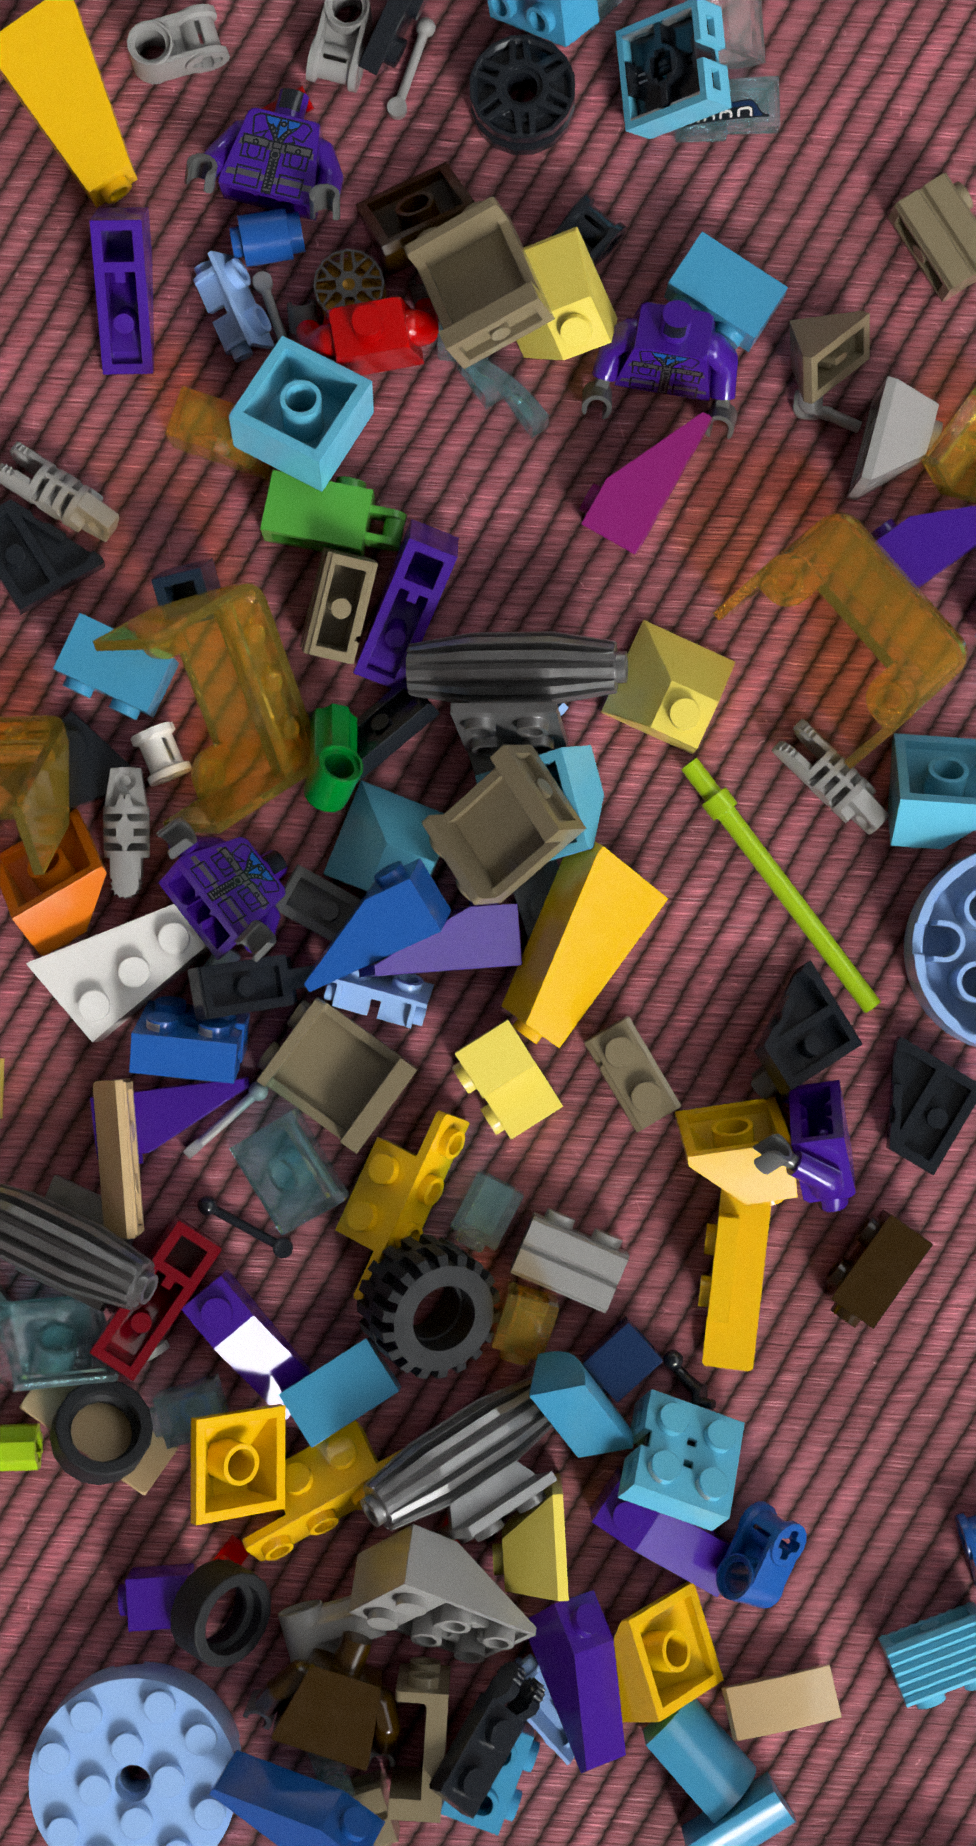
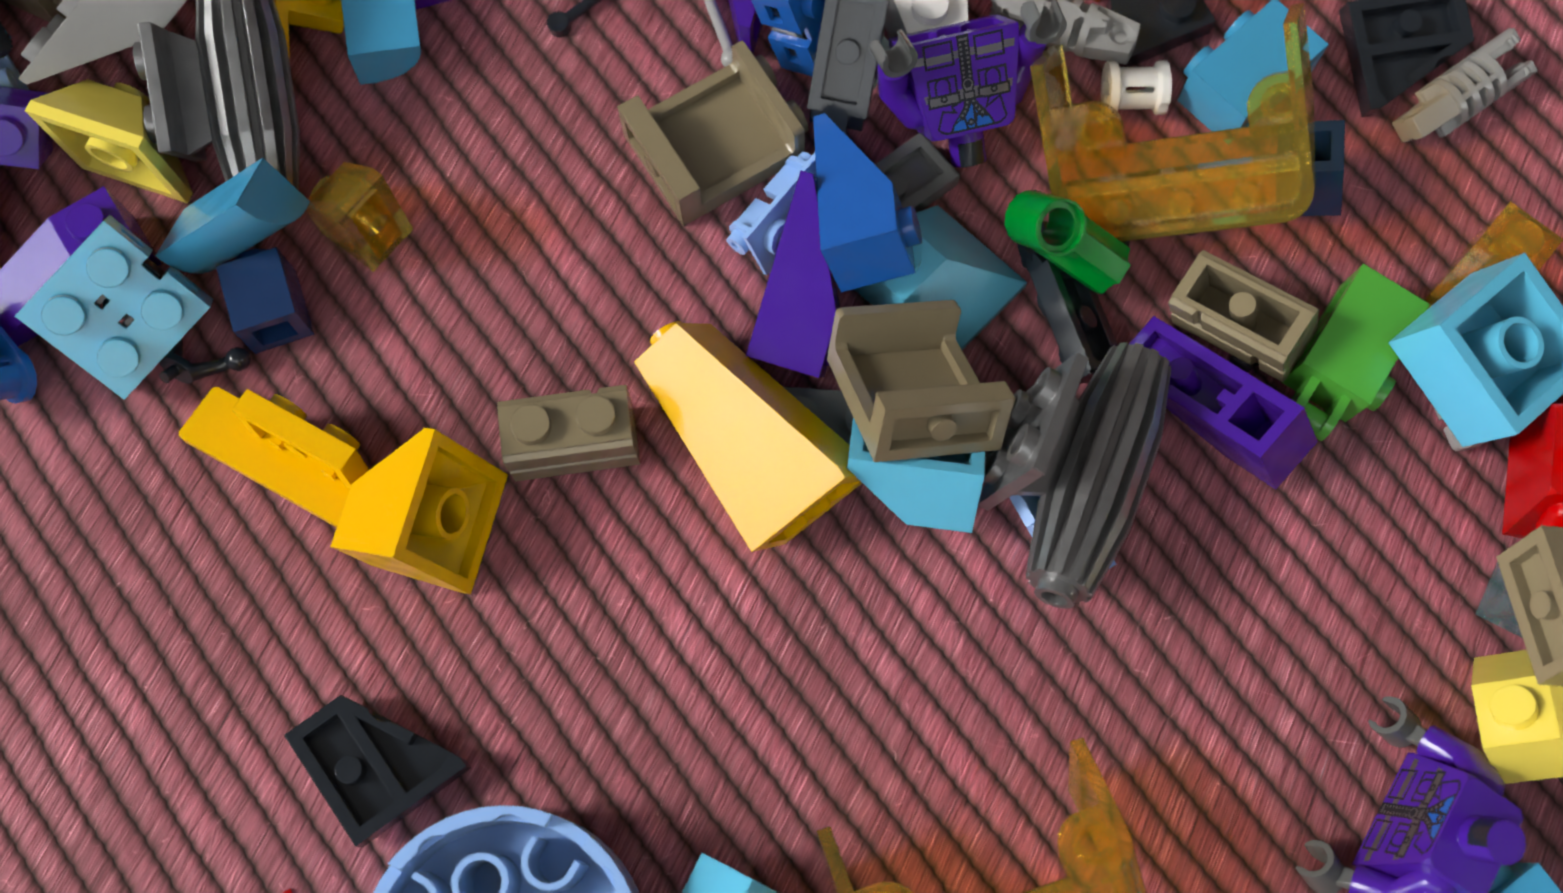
camera: 105 degrees right, 15 degrees down
(289, 1172) = (632, 58): clear light blue slope -> none
(400, 1189) = (548, 142): yellow bracket -> none
(453, 1330) = (380, 105): black tyre -> none
(485, 1211) = (496, 224): clear light blue brick -> none
(493, 384) = (1446, 605): clear light blue slope -> none
(507, 1079) = (627, 297): light yellow brick -> none
(570, 1260) = (398, 288): light grey brick -> none
(637, 492) = (1266, 721): magenta slope -> none
(669, 687) = (1004, 667): light yellow slope -> none
(720, 805) = (837, 668): lime bar -> none
(804, 1032) = (523, 650): black wing -> none
(818, 1141) = (385, 603): dark purple torso -> none
(832, 779) = (791, 824): light grey hinge -> none
(875, 1270) = (212, 621): dark brown brick -> none

